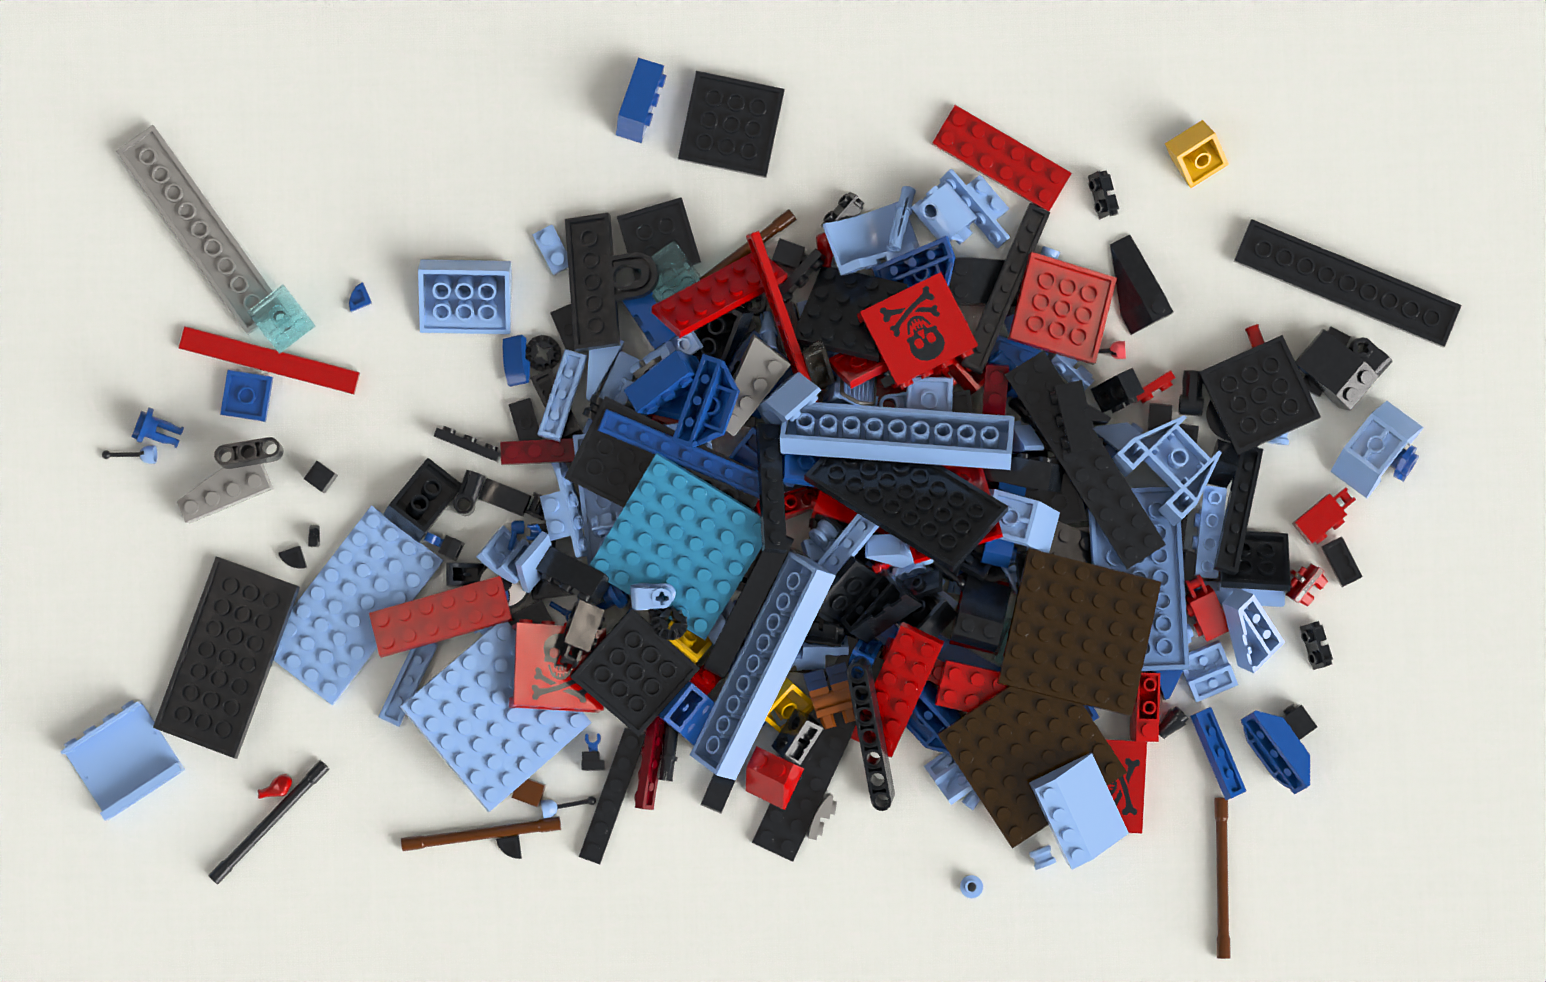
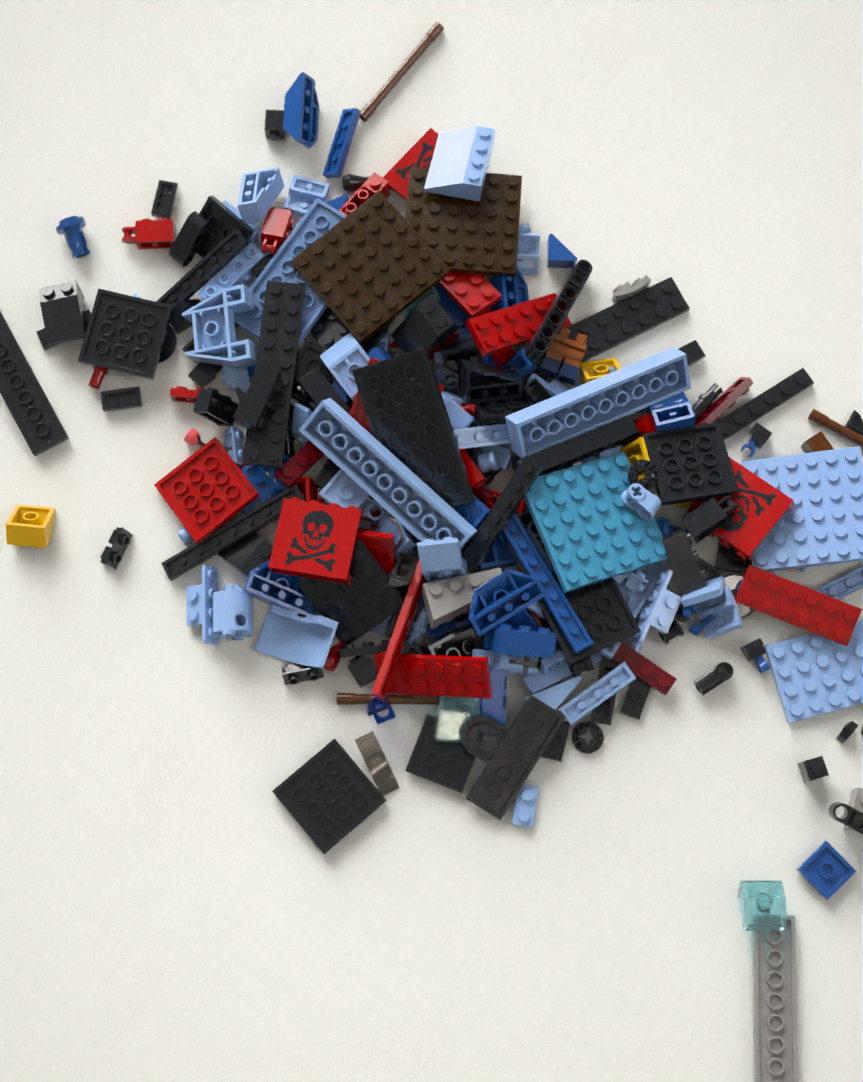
camera: 145 degrees left, 10 degrees down
(269, 360) = (793, 886): red tile -> none
(359, 298) = (691, 879): blue tile -> none
(422, 500) = (749, 697): black slope -> none
(462, 573) = (759, 625): black slope -> none
(465, 296) = (614, 820): light blue slope -> none
(468, 443) = (688, 712): black plate -> none
(504, 497) = (689, 656): black slope -> none
(515, 365) = (612, 745): blue slope -> none
(550, 808) = (810, 427): hinge -> none
(563, 611) = (703, 546): blue hand -> none
(640, 99) = (379, 863): blue wedge -> none
(711, 184) = (377, 763): none -> clear smoke slope
(743, 229) = (376, 706): none -> clear blue bracket
(771, 777) = (644, 335): red slope -> none
(797, 737) = (608, 347): black brick -> none
(895, 240) = (258, 640): light blue pin -> none
(918, 798) = (558, 255): none -> blue slope
(964, 883) = (565, 184): light blue plate -> none
(1001, 158) = (163, 626): red plate -> none
(1042, 857) = (505, 162): light blue wheel -> none
(1138, 291) = (147, 463): black wedge -> none
(1191, 399) = (172, 369): black piece -> none
(1215, 334) = (121, 399): none -> black plate
(1279, 536) = (189, 238): none -> black beam
(1303, 582) = (195, 202): red hips -> none
(1318, 655) = (227, 157): black hinge -> none
(1373, 356) = (33, 311): black piece -> none
(1375, 448) = (81, 247): light blue slope -> none

